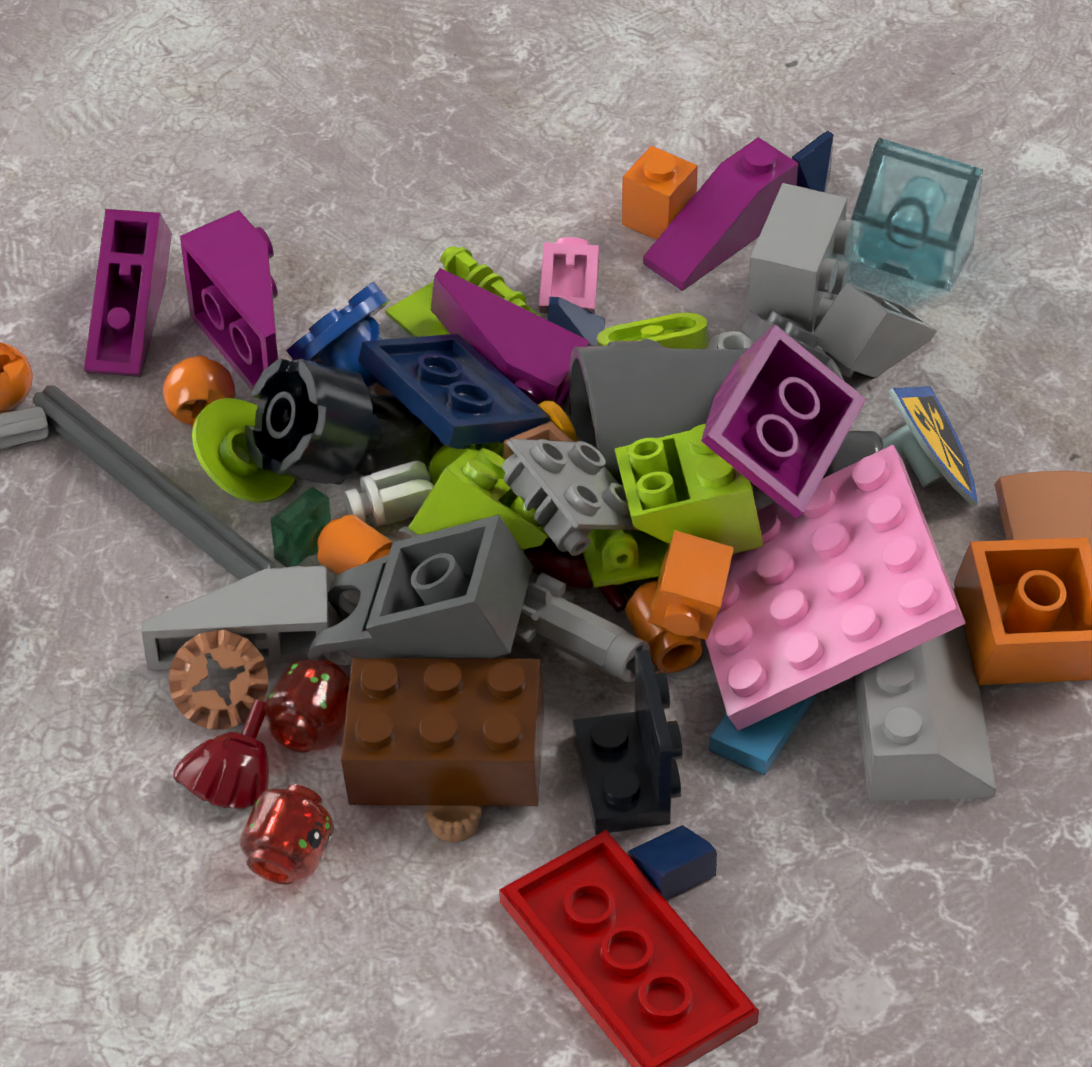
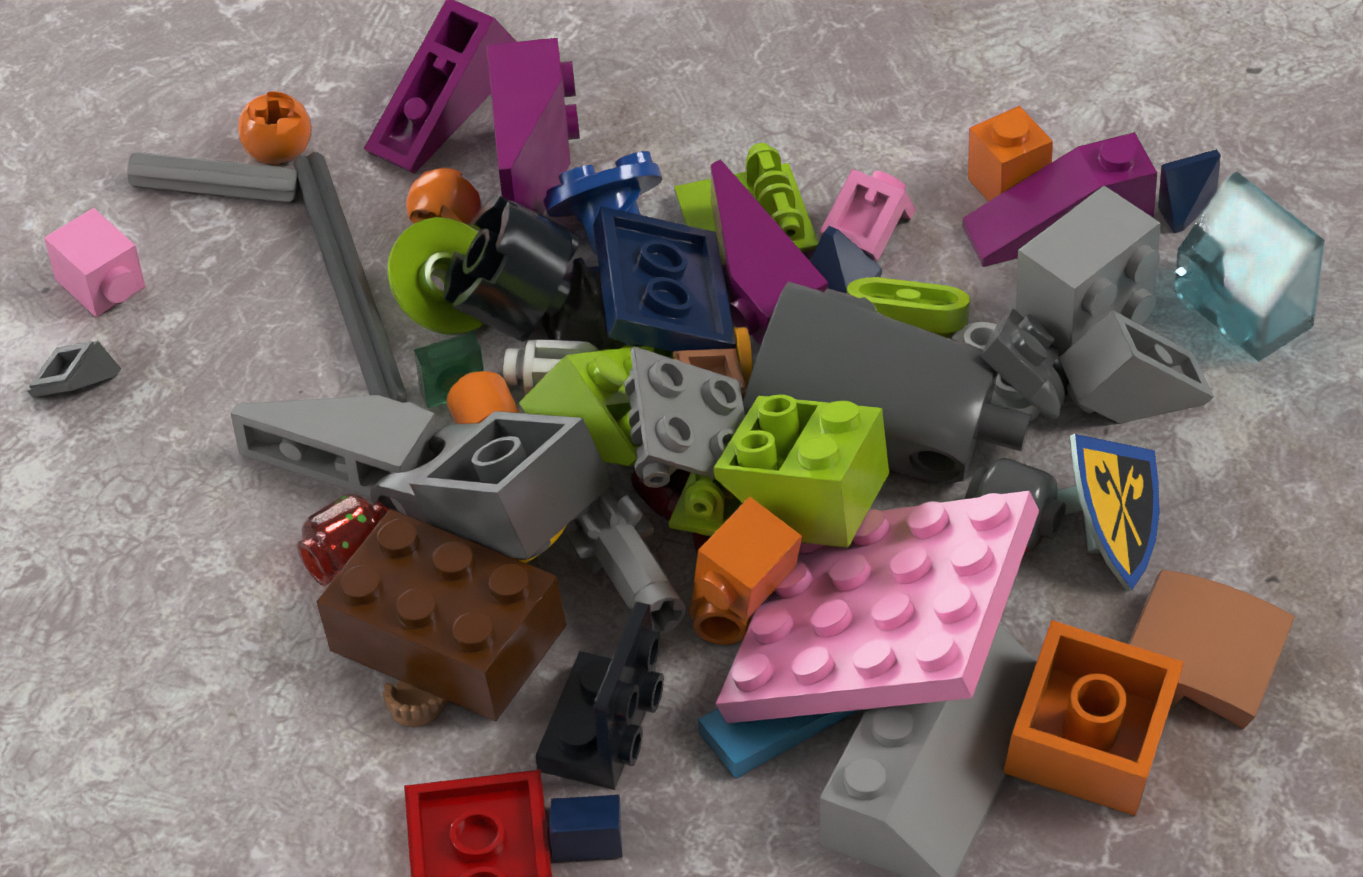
camera: 30 degrees right, 0 degrees up
(190, 668) = (297, 461): nougat gear -> none
(230, 767) = (242, 573): dark red piece -> none
(286, 834) = (243, 654): clear red head -> none
(781, 419) = (916, 426): magenta slope -> none

